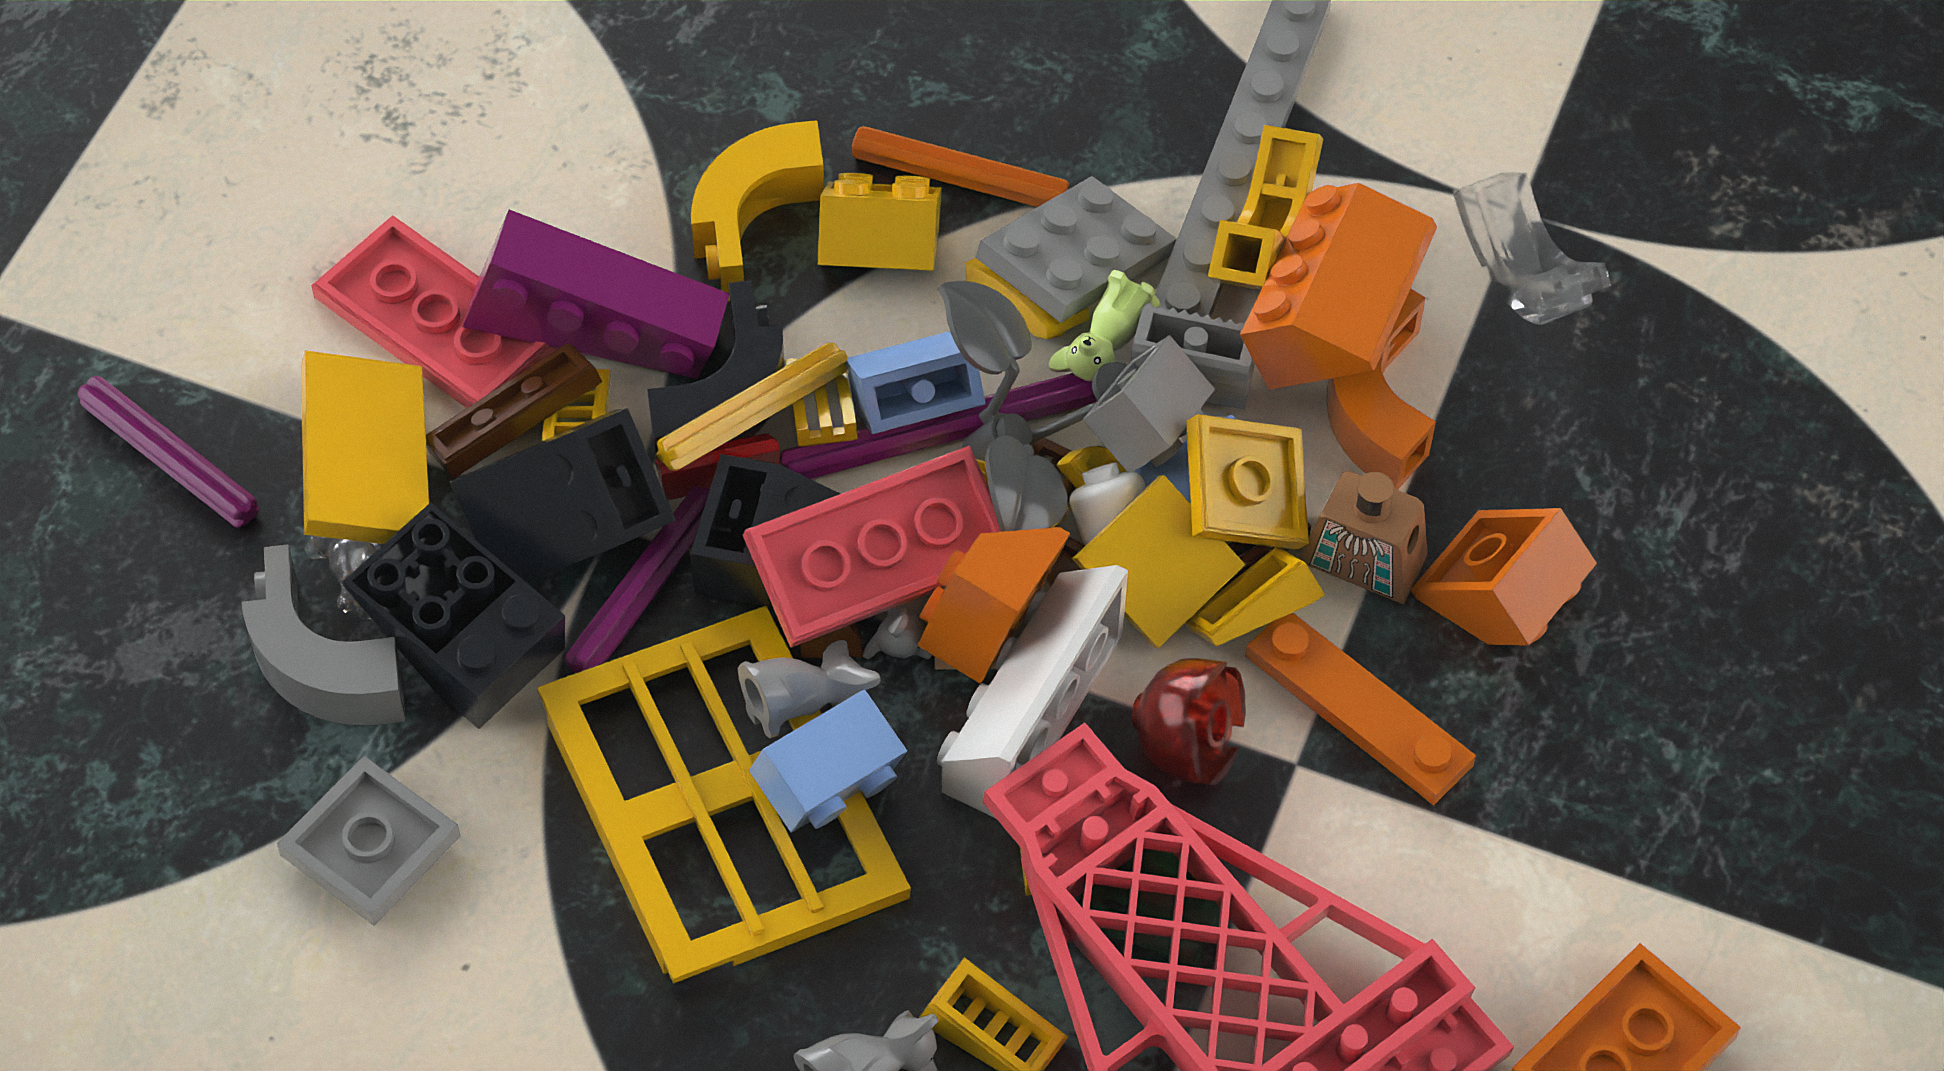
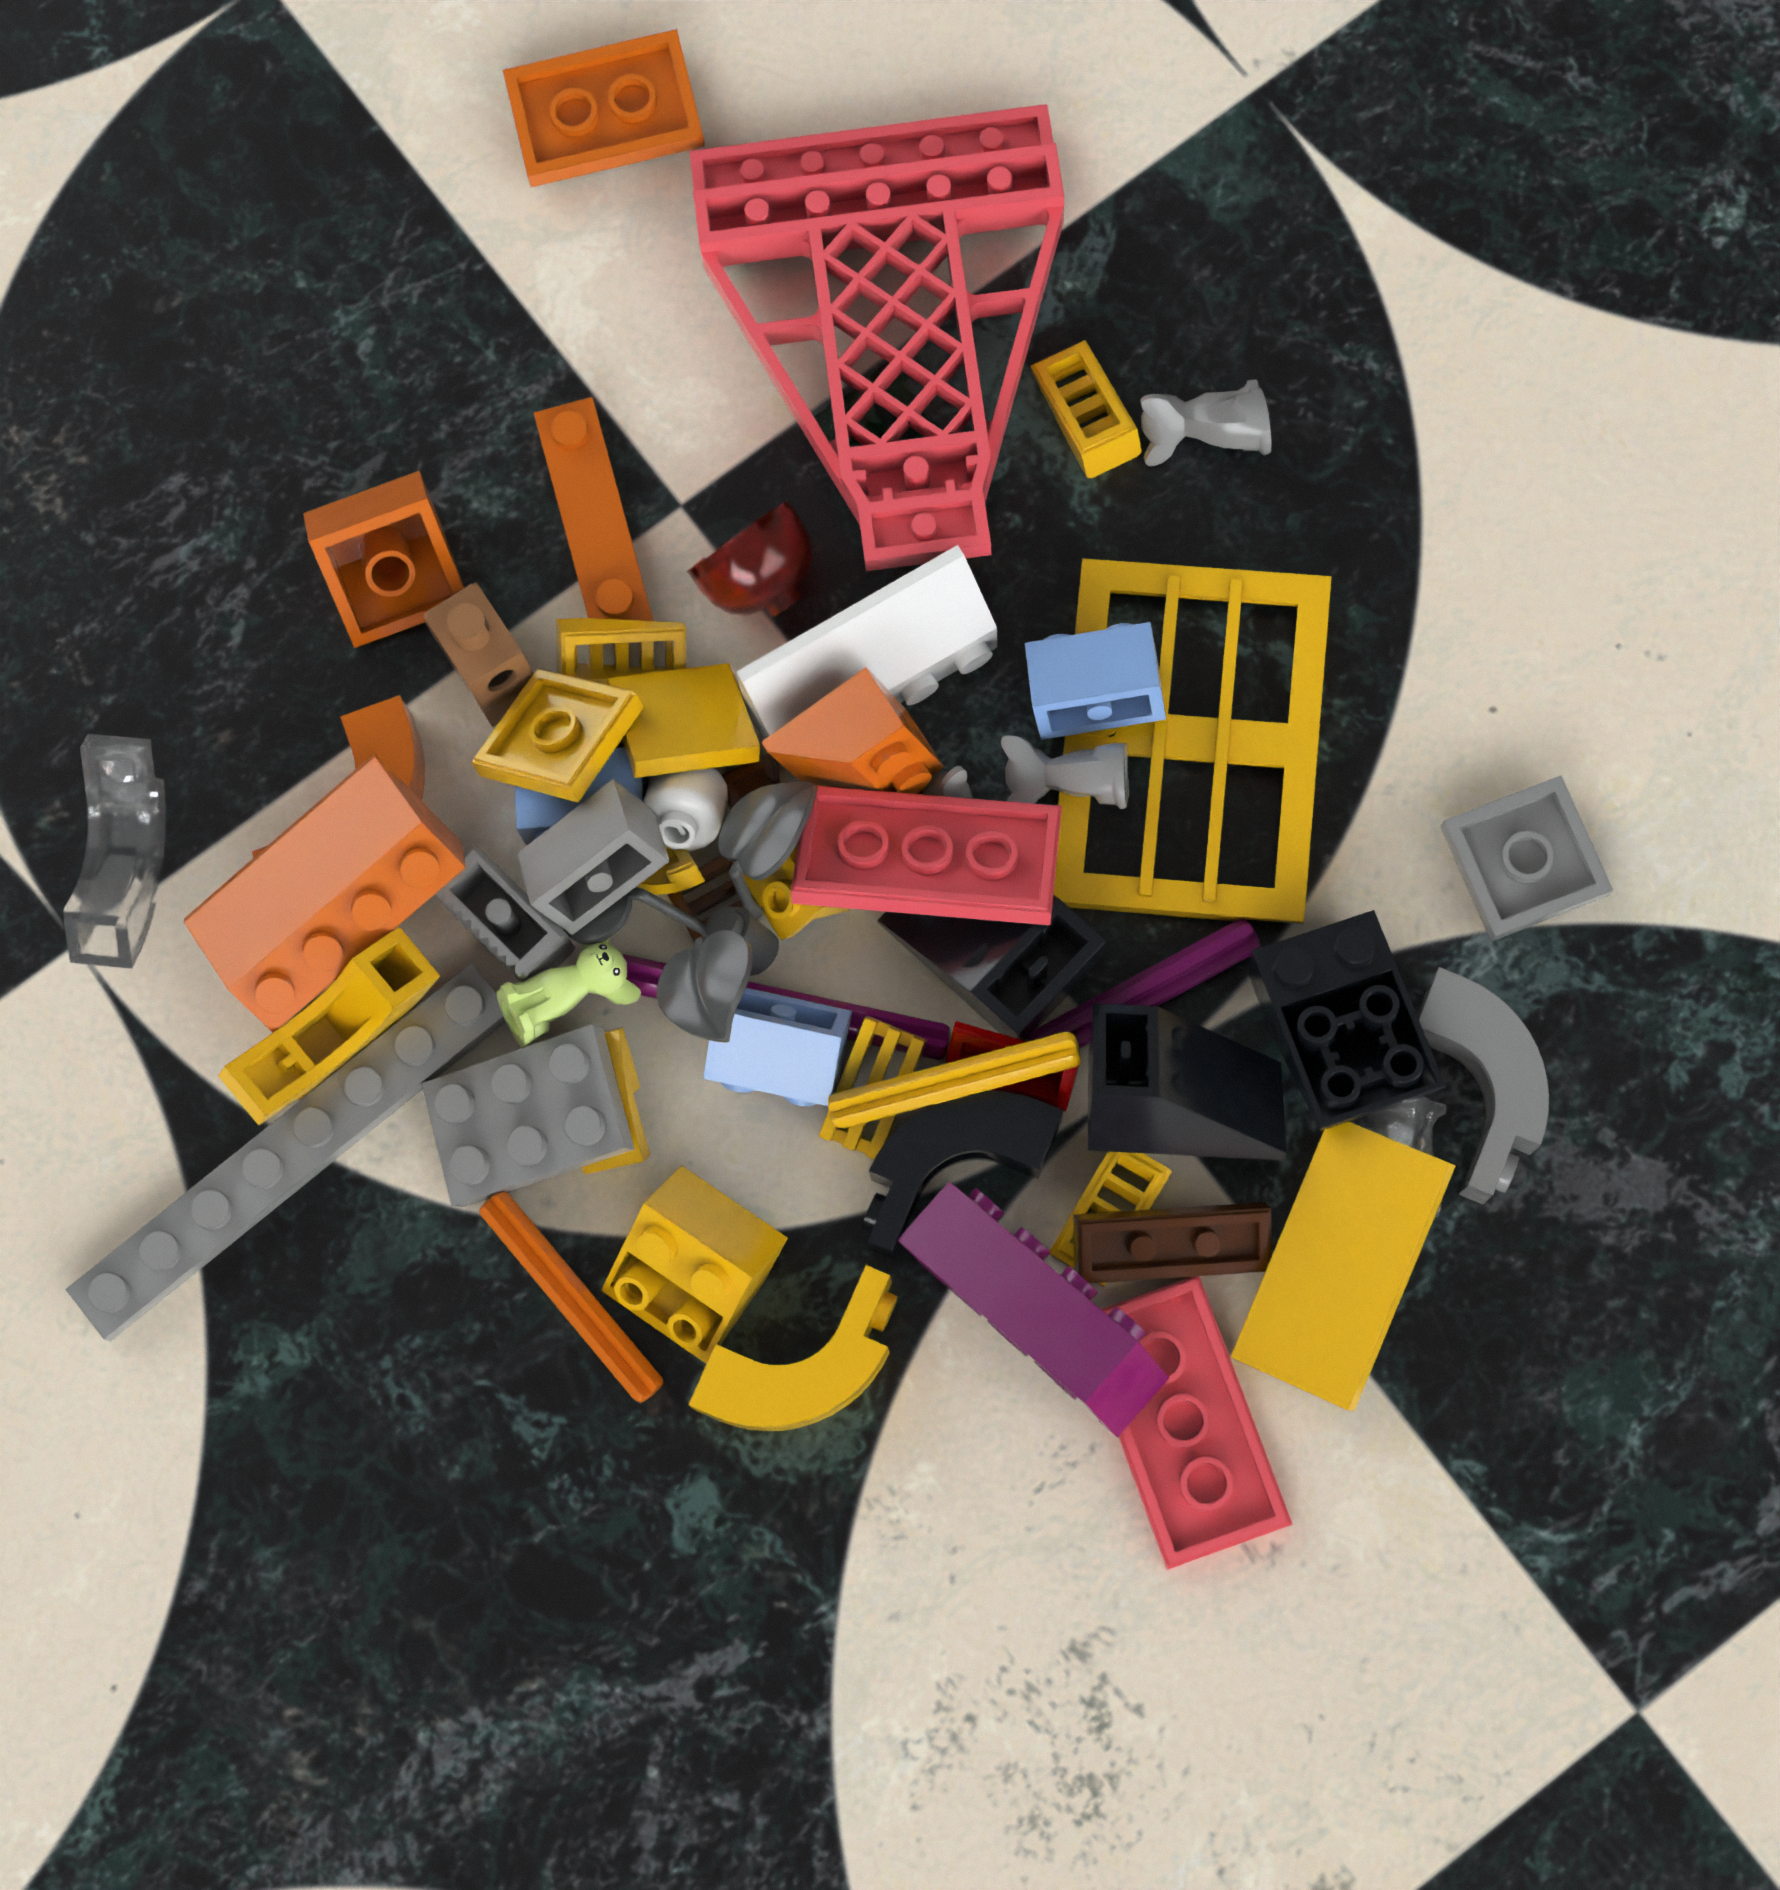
camera: 140 degrees left, 20 degrees up
(168, 451) = (1524, 1402): magenta axle -> none

